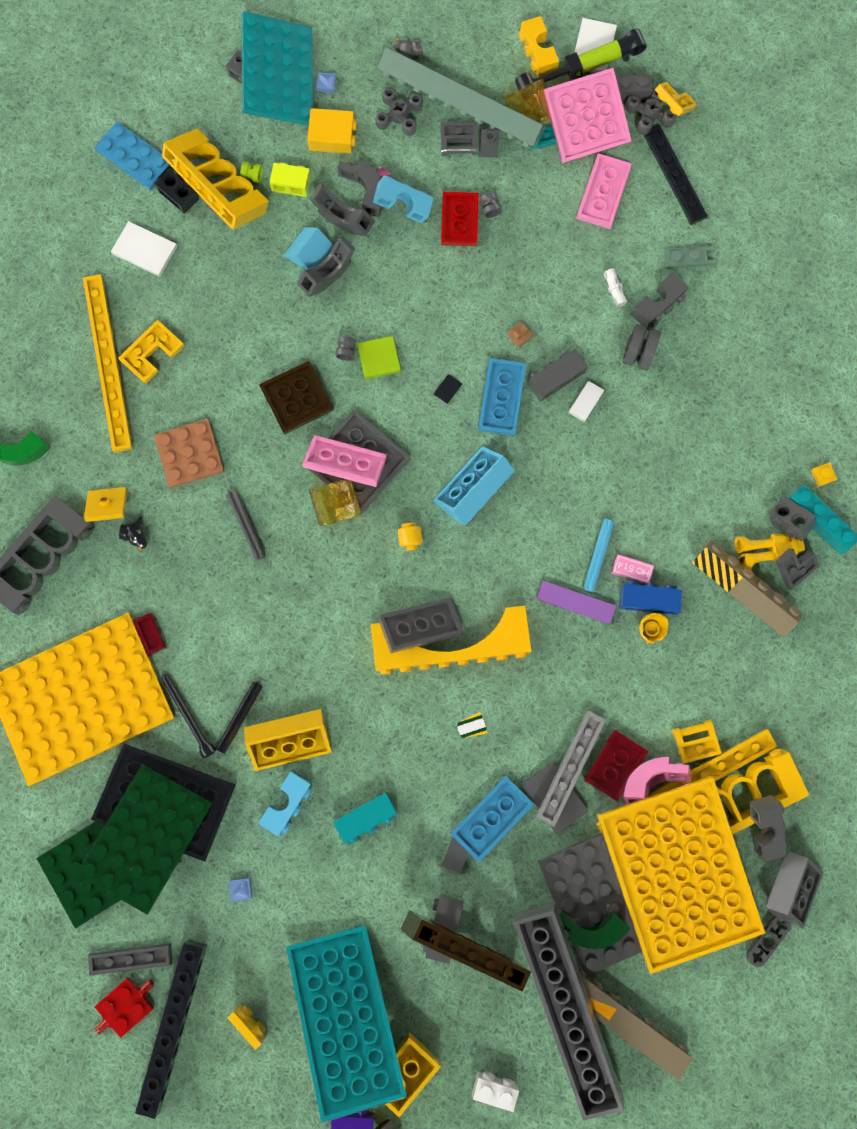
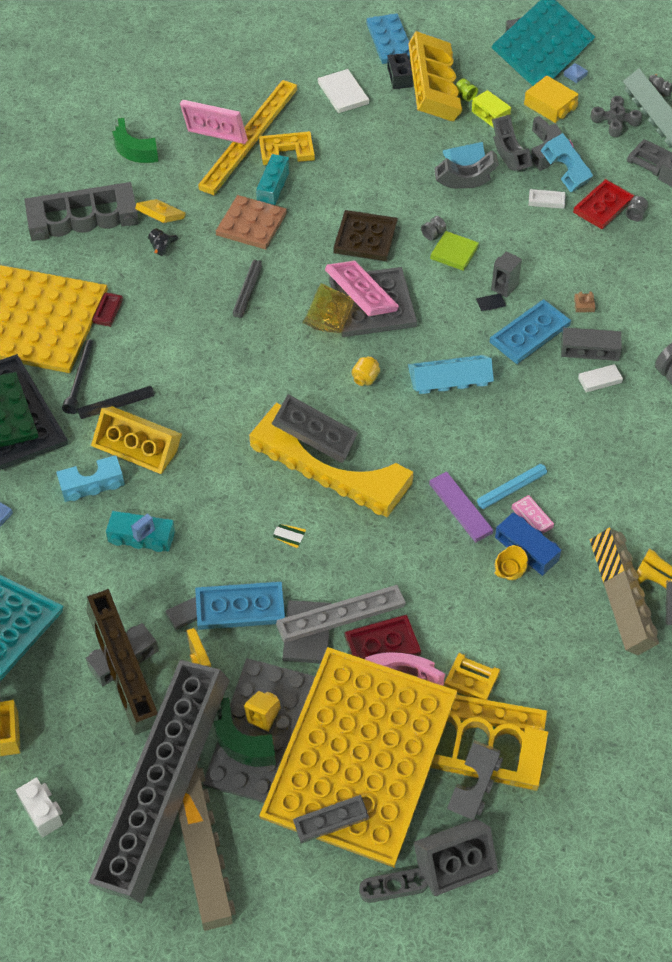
camera: 40 degrees right, 25 degrees down
(70, 377) = (213, 121): none -> bright pink tile
(172, 398) = (273, 179): none -> teal brick
(373, 822) = (143, 527): none -> medium blue tile
(409, 245) = (546, 198): none -> white tile
(444, 356) = (506, 274): none -> dark grey brick
(506, 890) = (198, 653): none -> yellow plate
(592, 899) = (262, 709): none -> yellow slope
(701, 938) = (330, 819): none -> dark grey tile

